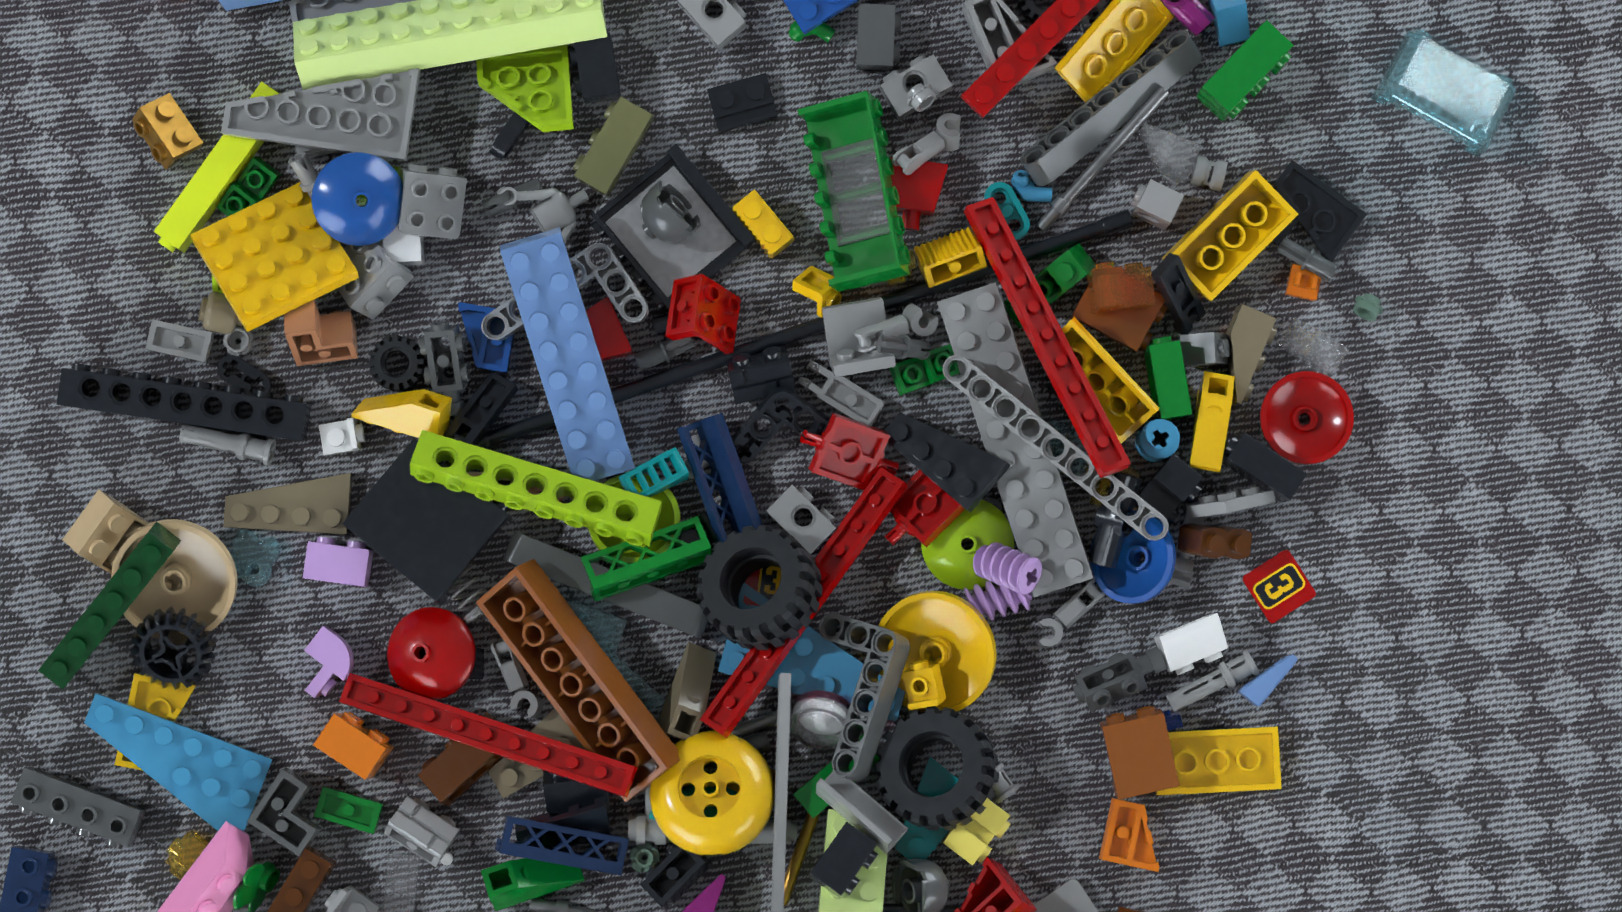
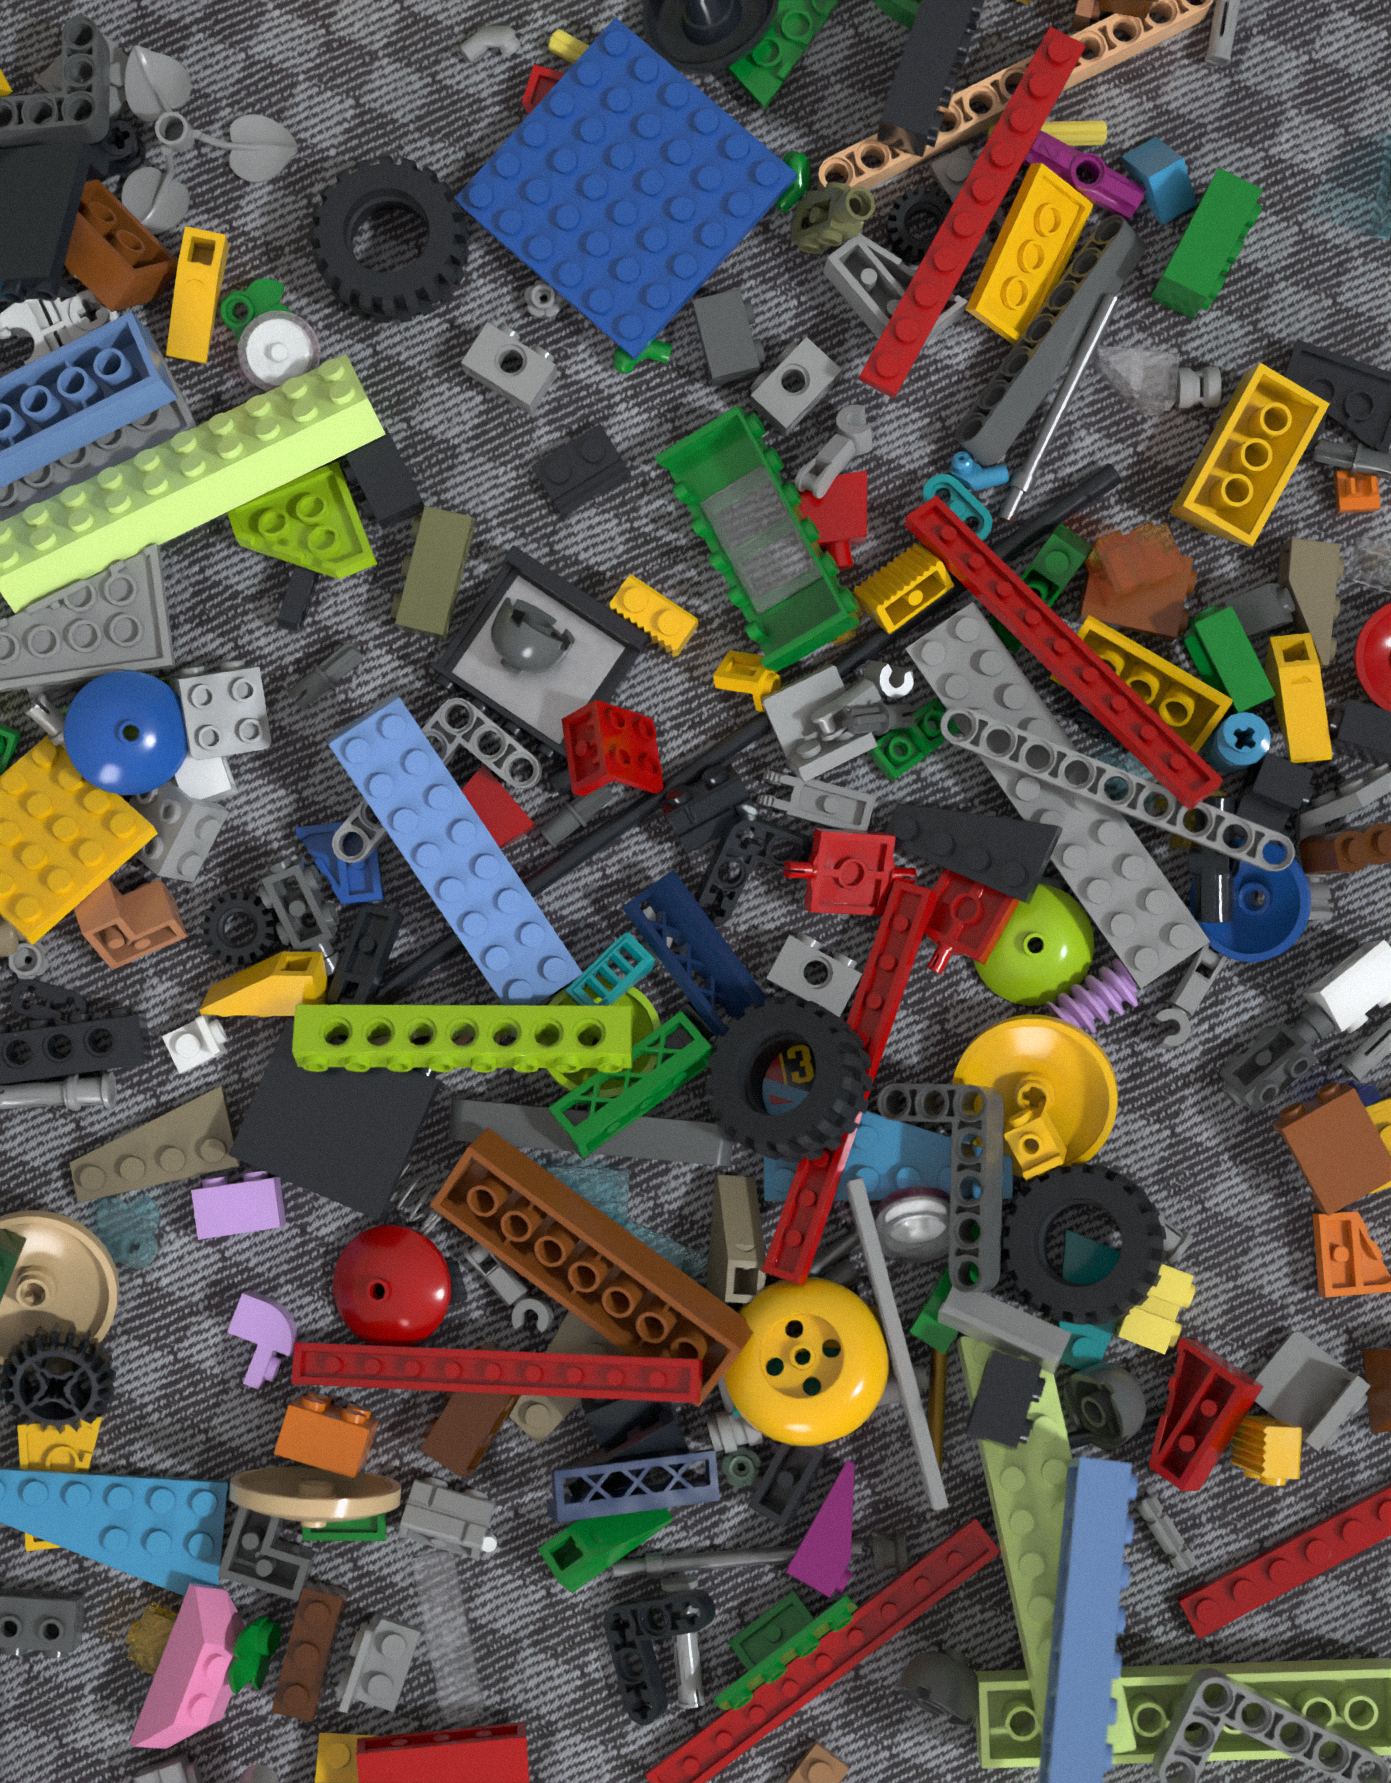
camera: 20 degrees left, 0 degrees up
(333, 783) = (314, 1494): none -> tan dish
(554, 211) = (381, 677): light grey piece -> none
(921, 97) = (807, 394): light grey plate -> none
(1007, 567) = (1098, 960): lavender piece -> none
(1156, 204) = (1146, 444): light grey brick -> none
(1178, 293) = (1208, 548): black plate -> none

